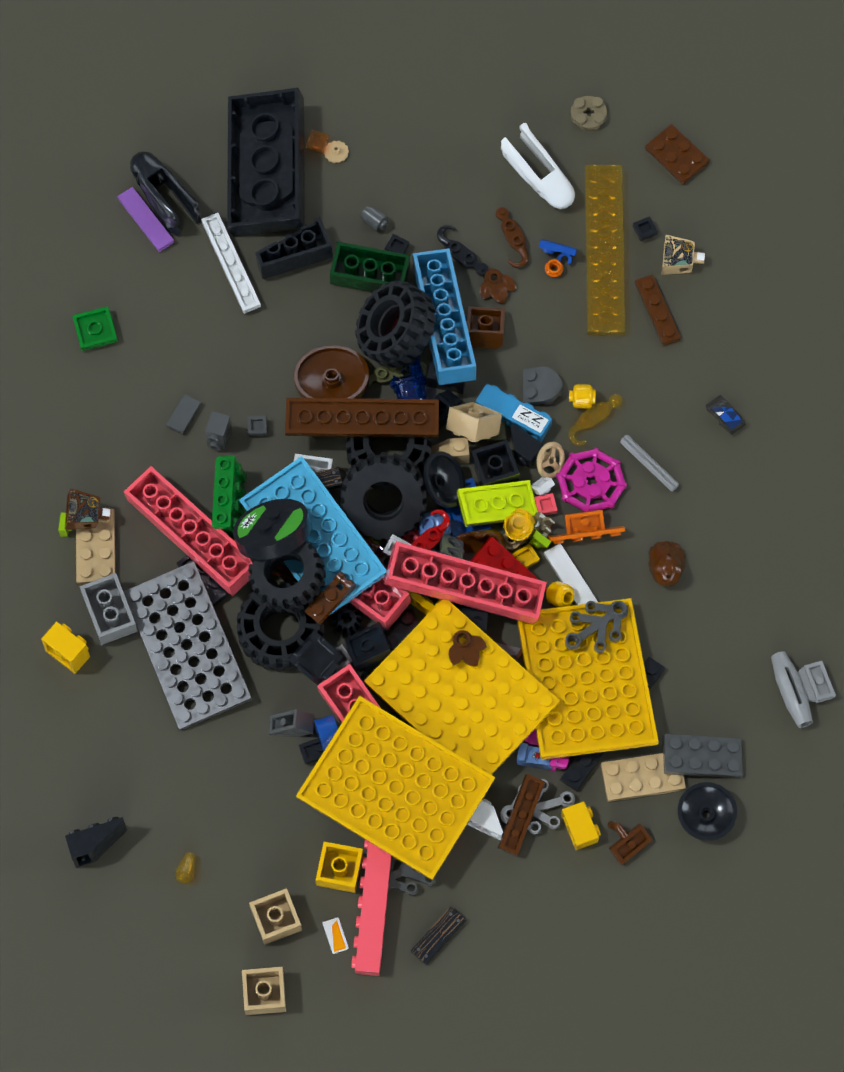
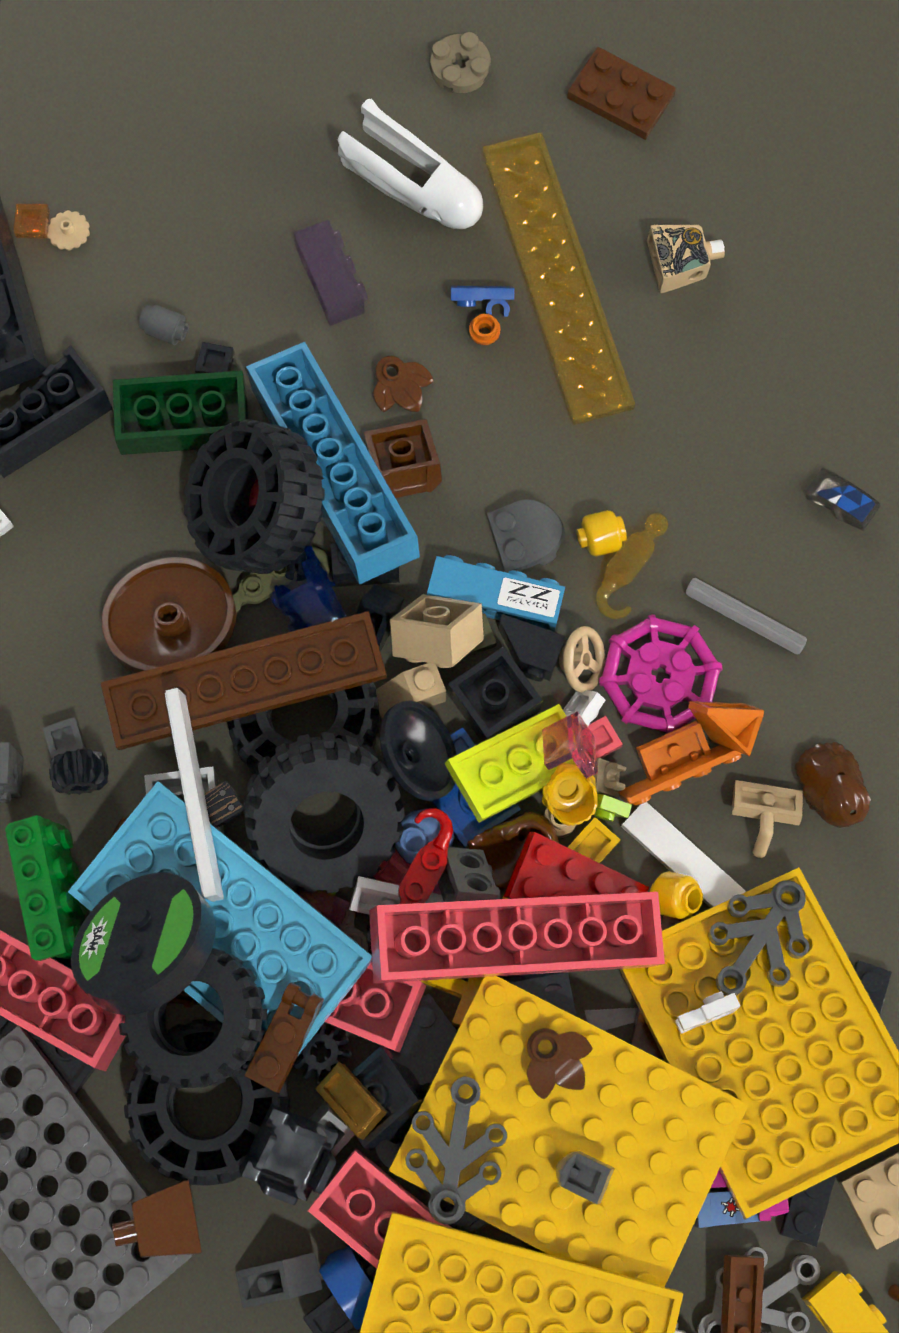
camera: 20 degrees left, 5 degrees up
(241, 674) = (162, 1224): none -> reddish brown torso
(260, 443) = (78, 772): none -> black gear
(319, 464) = (194, 795): none -> white tile
(355, 643) = (351, 1100): none -> pearl gold tile
(399, 680) = (455, 1156): none -> dark grey plant
(461, 253) = (325, 344): black piece -> none
(462, 706) = (584, 1175): none -> dark grey plate
(476, 213) = (330, 272): none -> clear purple brick
(514, 236) = (402, 294): reddish brown piece -> none
(529, 497) = (570, 740): none -> clear pink panel
(556, 652) = (714, 1008): none -> white plate
(617, 514) = (729, 723): none -> orange slope
(625, 564) = (769, 805): none -> tan plate
(645, 228) = (611, 225): black plate -> none
(657, 310) = (674, 354): reddish brown plate -> none

